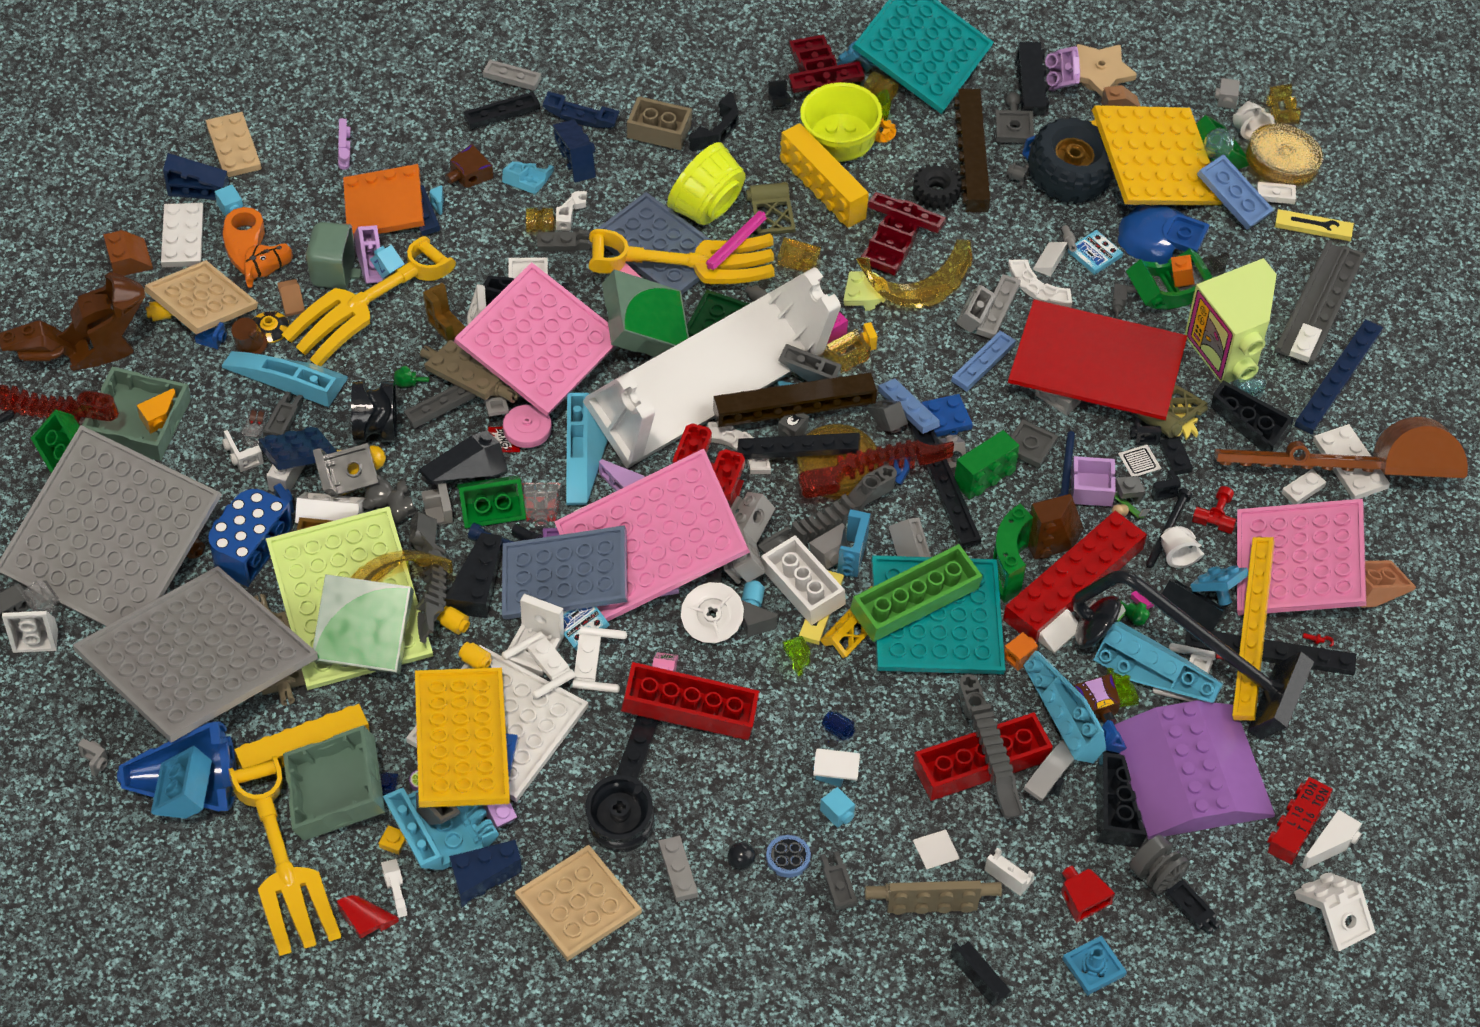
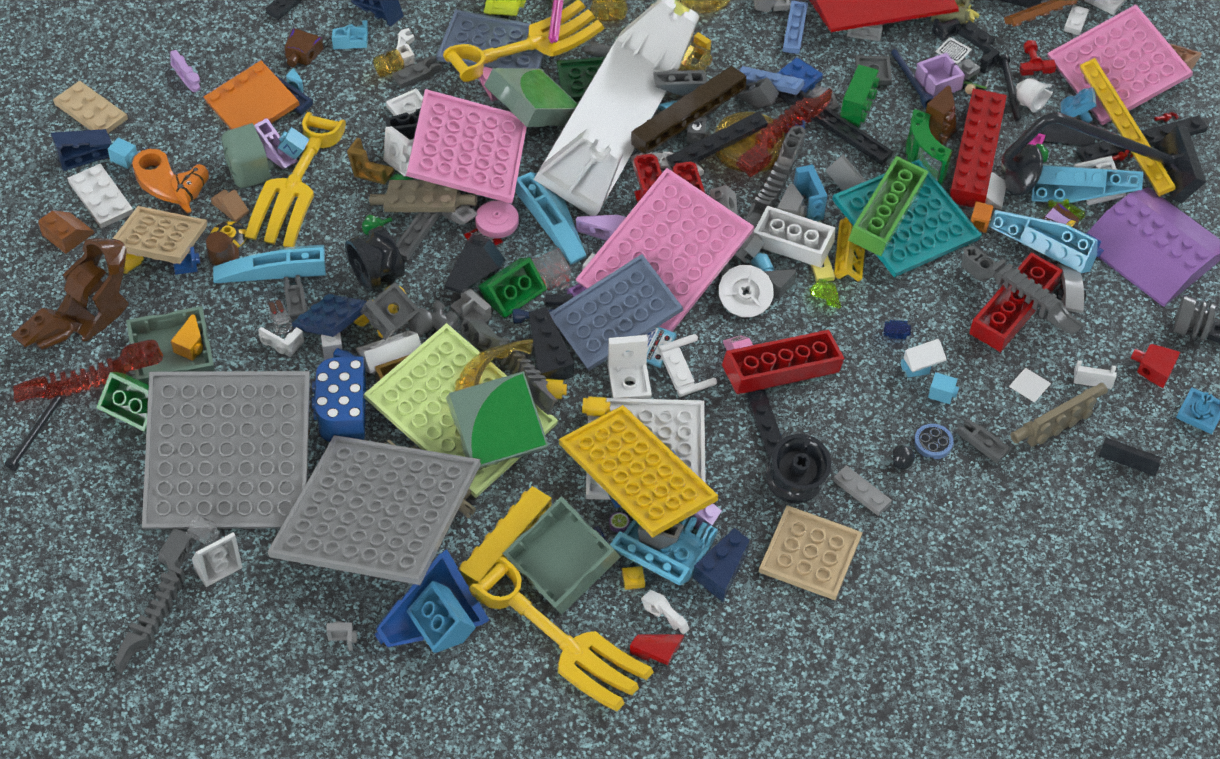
camera: 30 degrees left, 0 degrees up
(548, 660) = (650, 383): white plate -> none
(1117, 809) = (1129, 290): black wedge -> none

